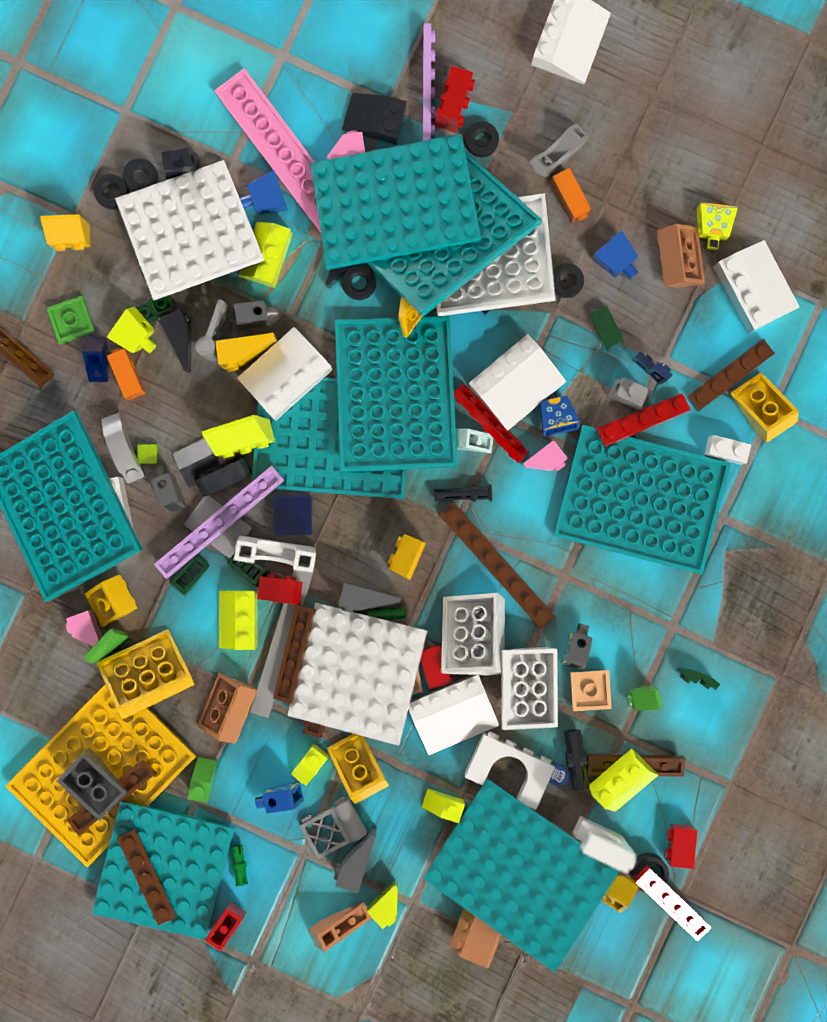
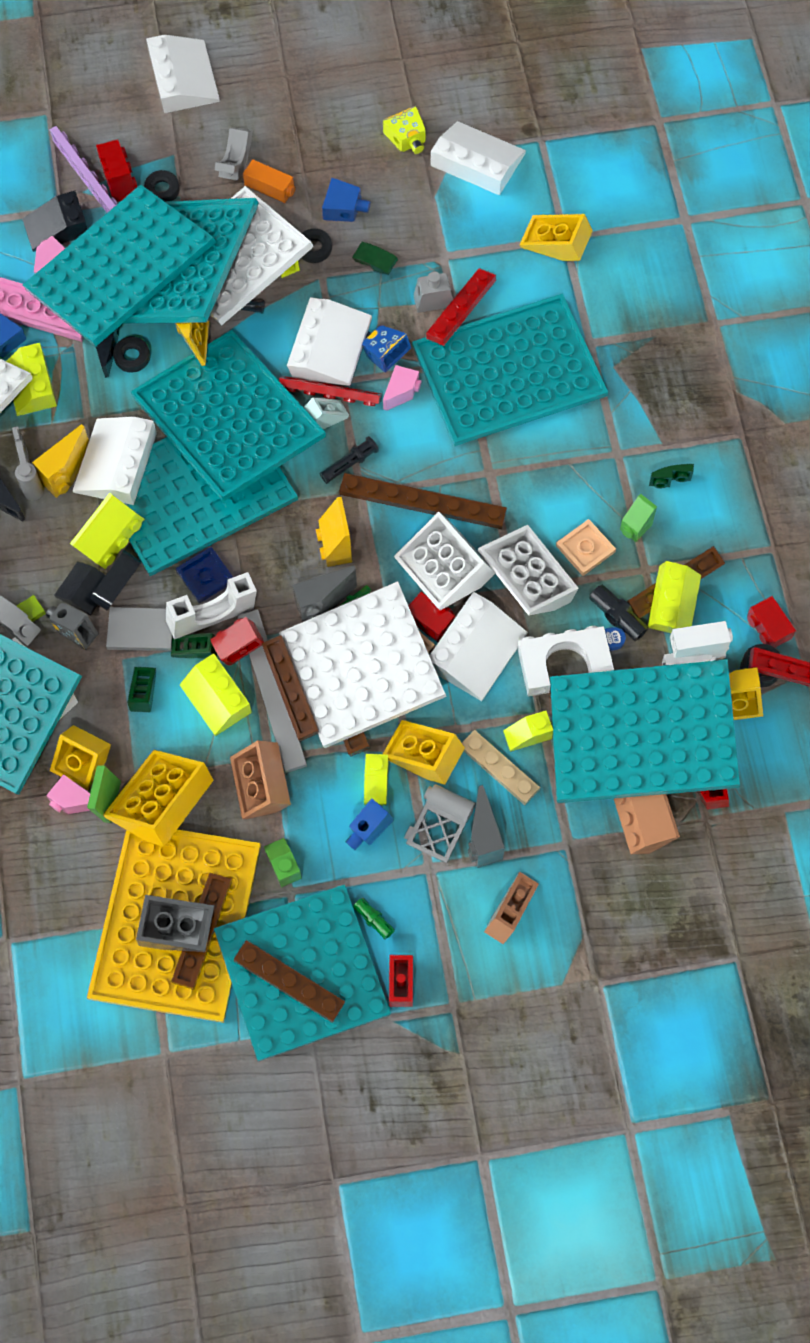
camera: 35 degrees left, 20 degrees down
(219, 522) = (138, 620): lavender plate -> none
(245, 317) = (49, 430): dark grey torso -> none
(384, 907) = (543, 859): neon yellow slope -> none
(404, 815) = (500, 767): none -> tan plate
(574, 655) = (547, 512): dark grey torso -> none
(659, 372) = (443, 262): dark blue plate -> none
(680, 256) = (396, 170): nougat slope -> none
(727, 450) = (551, 283): white brick -> none
(730, 375) = (509, 232): reddish brown plate -> none

